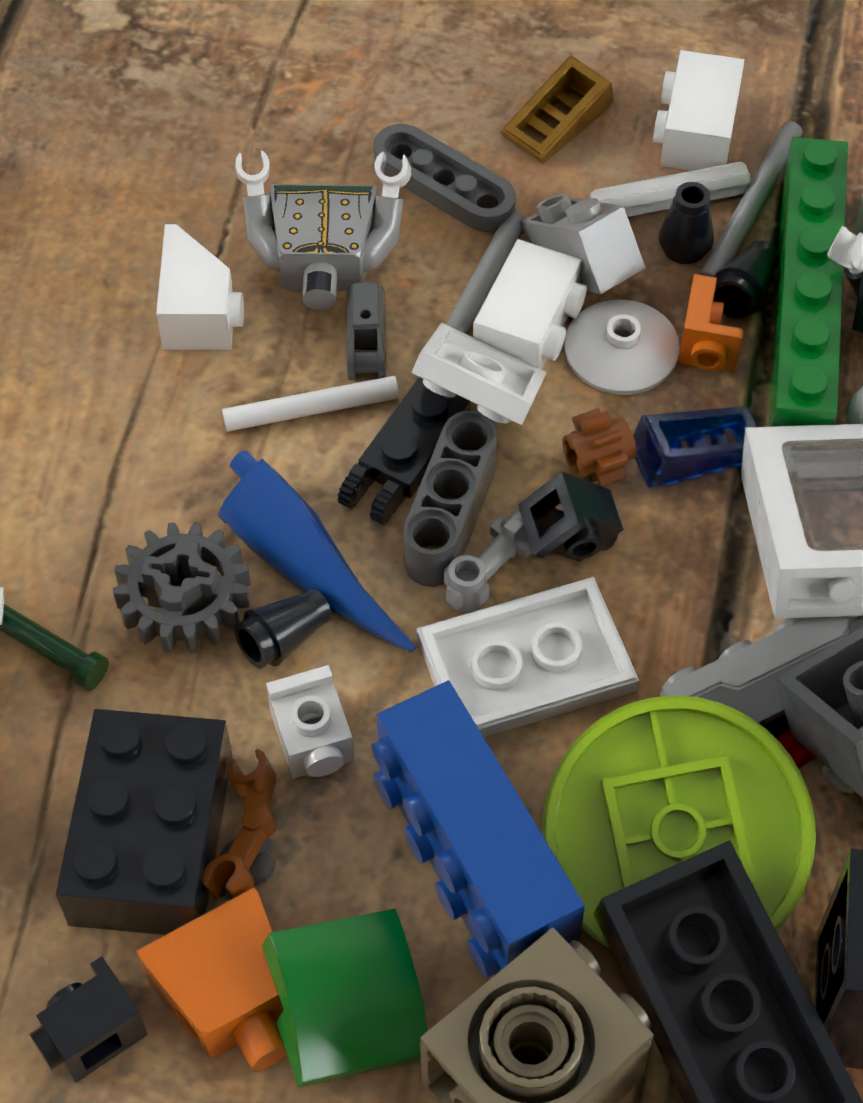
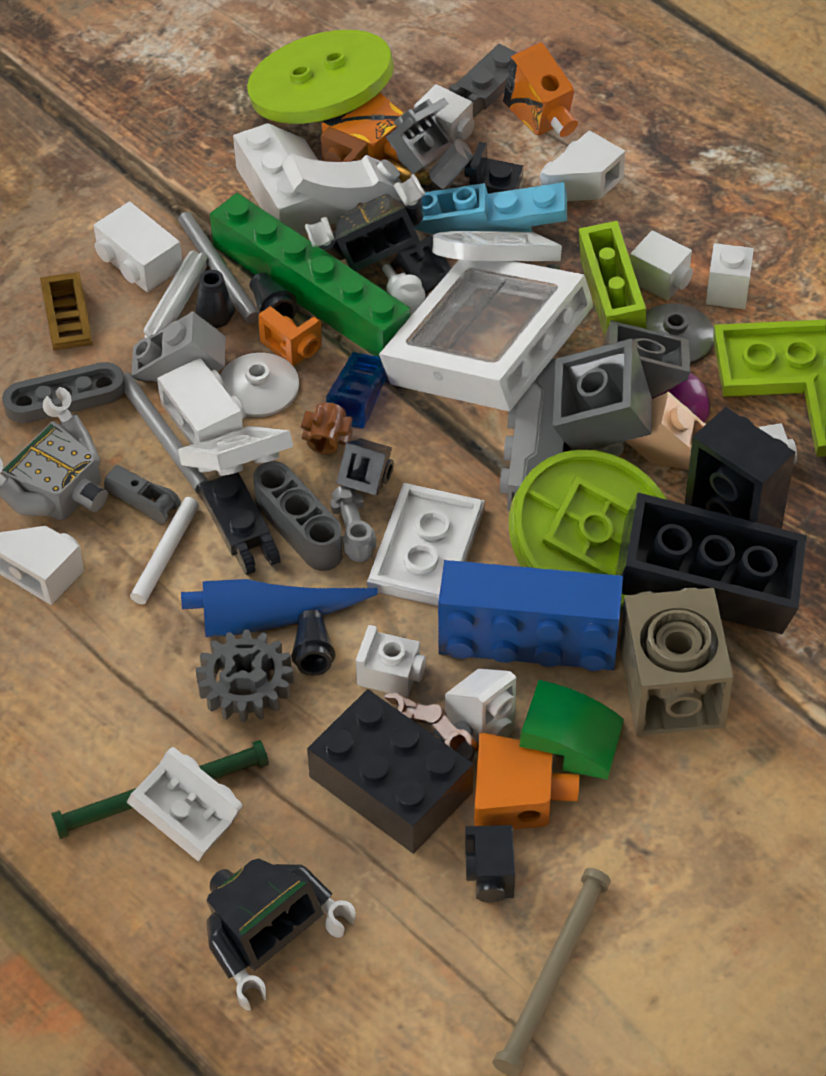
camera: 55 degrees left, 5 degrees down
(305, 869) = (484, 702): none -> white slope

